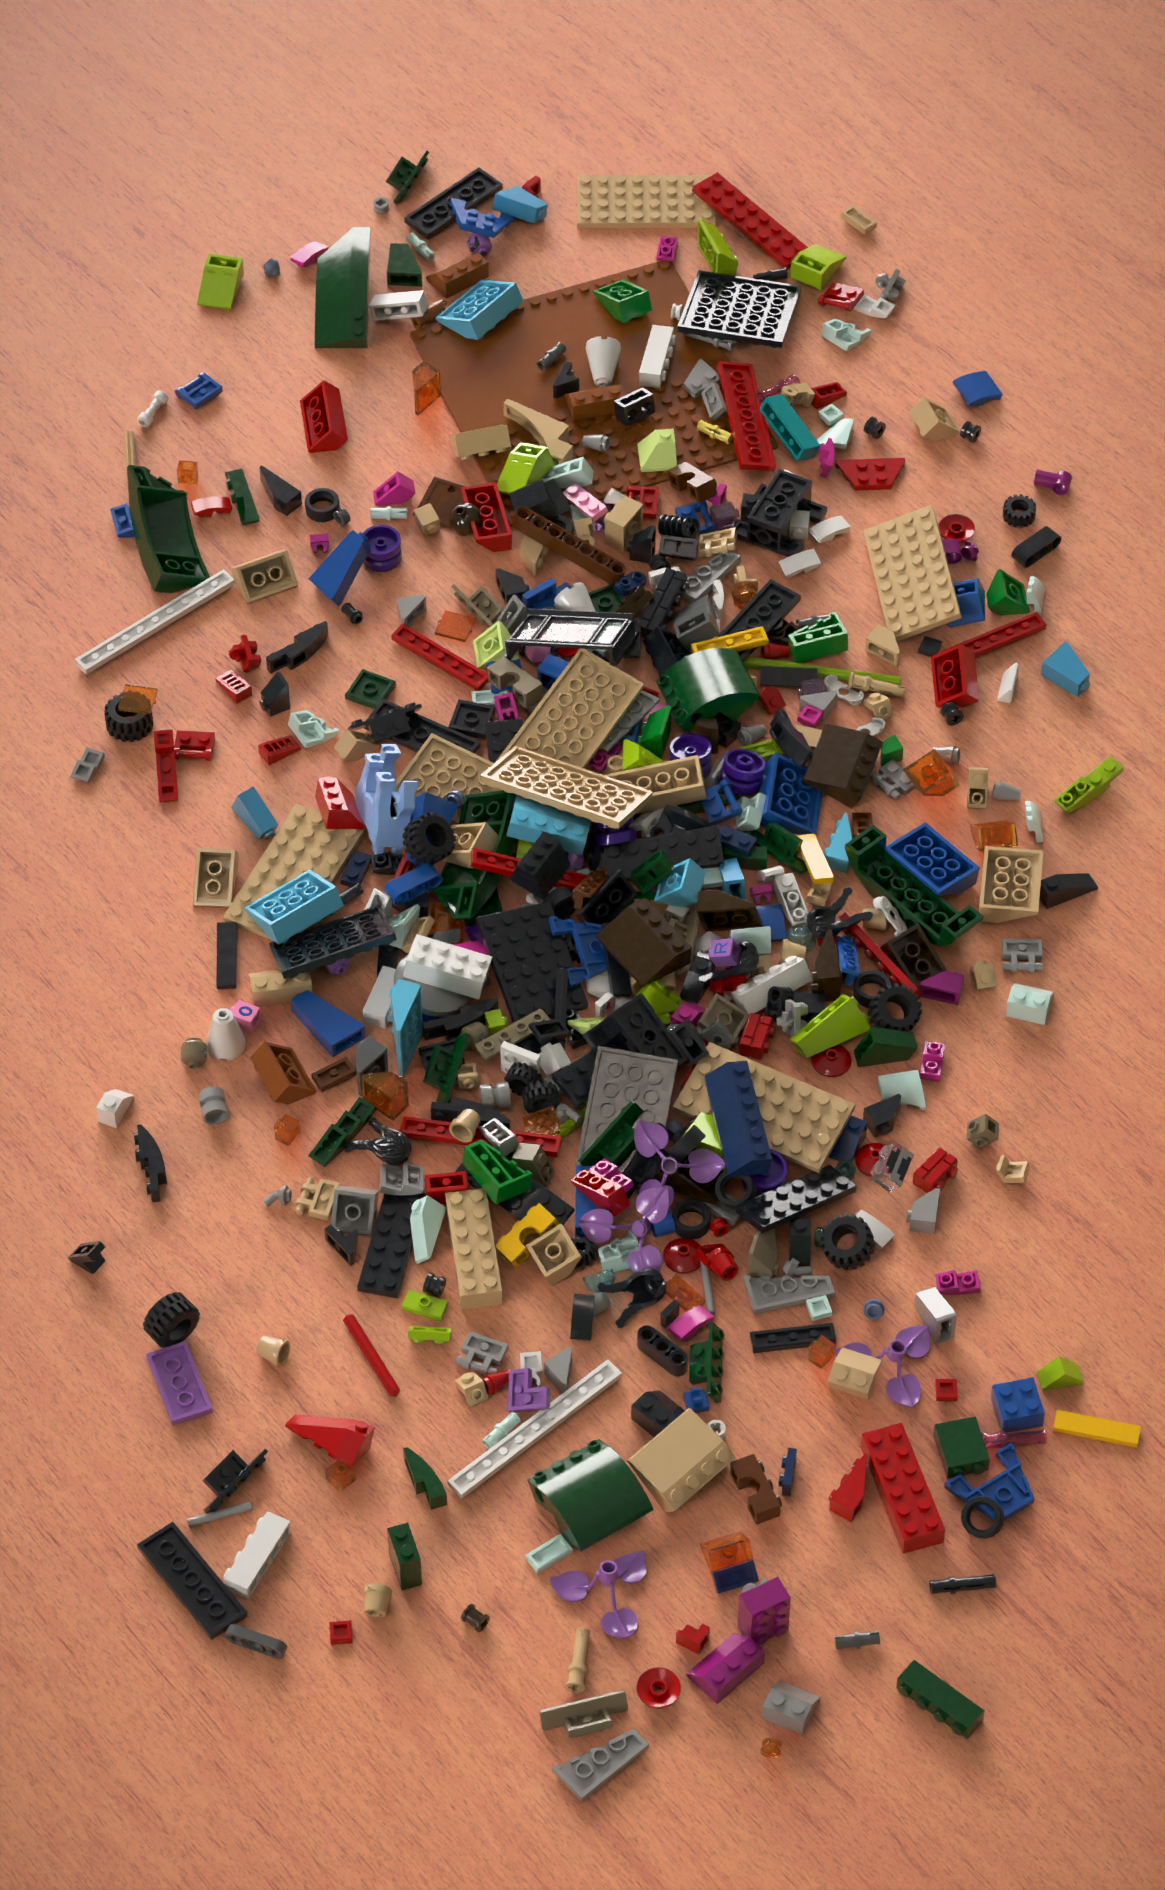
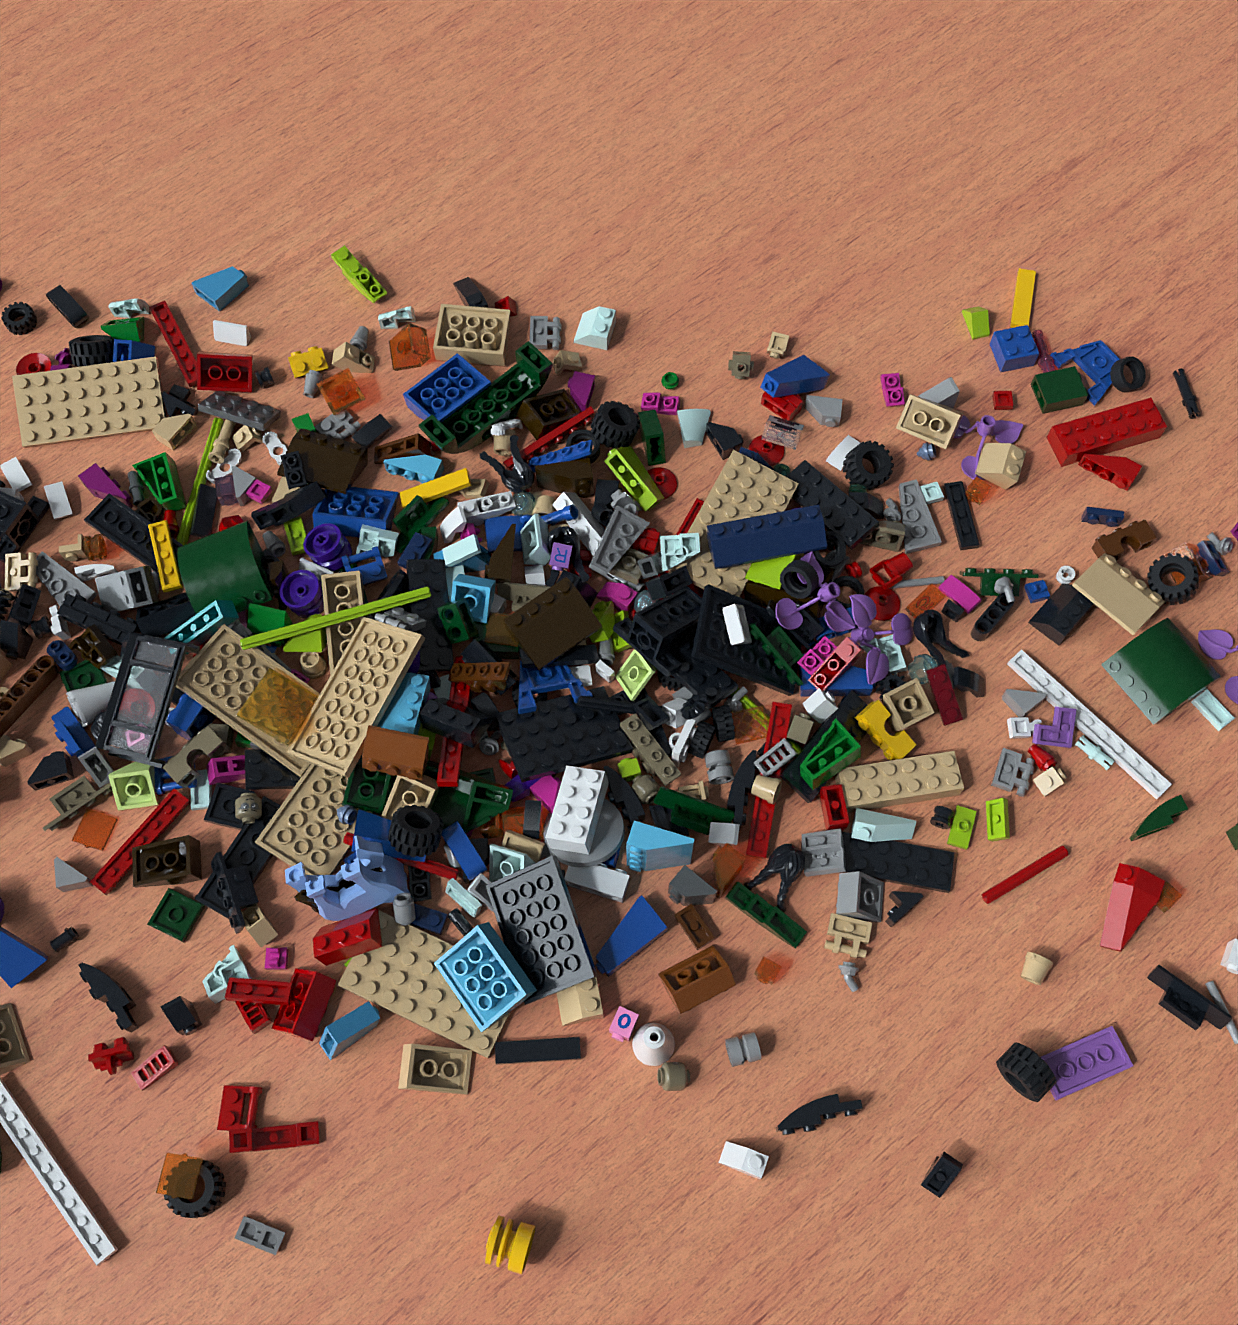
camera: 90 degrees left, 15 degrees up
(59, 928) = (510, 1244): none -> yellow wheel
(280, 783) = (306, 1006): none -> red slope
(293, 747) = (259, 991): none -> red plate
(325, 763) = (276, 958): none -> dark pink tile
(360, 843) = (404, 909): none -> light grey brick
(363, 900) = (463, 898): none -> light aqua tile
(417, 676) = (167, 862): none -> dark brown slope
(421, 1092) = (723, 833): none -> light grey slope
(464, 725) = (248, 808): none -> dark tan head
(499, 812) = (395, 752): none -> dark orange slope
(550, 1058) = (694, 706): none -> black gear
(556, 1178) = (820, 705): none -> white brick
(560, 734) = (278, 707): none -> clear yellow slope
(564, 1292) = (944, 694): none -> dark red plate
(641, 1092) = (737, 624): none -> white slope
(649, 673) = (205, 623): none -> teal brick
(650, 770) = (335, 618): none -> lime axle
(650, 826) = (402, 619): none -> light grey plate
(693, 1353) = (1004, 585): none -> light grey plate
(702, 1521) = (1174, 564): none -> black tyre
(725, 1044) = (678, 548): none -> light aqua slope
(730, 871) = (461, 550): none -> light aqua tile
(747, 1003) = (618, 537): none -> light grey wing
(776, 959) = (567, 513): none -> blue plant
(817, 595) = (100, 485): none -> magenta slope
(825, 735) = (294, 470): none -> black slope
(886, 806) = (374, 429): none -> black slope
(904, 1304) = (929, 421): none -> tan slope
(907, 694) = (239, 410): none -> flat silver plate
(913, 643) = (175, 402): none -> black slope
(960, 1174) = (794, 378): none -> blue slope
(963, 1070) = (670, 380): none -> green plate
(971, 563) = (91, 350): none -> black tyre
(974, 748) = (306, 361): none -> yellow bracket
(1057, 922) = (508, 304): none -> red slope

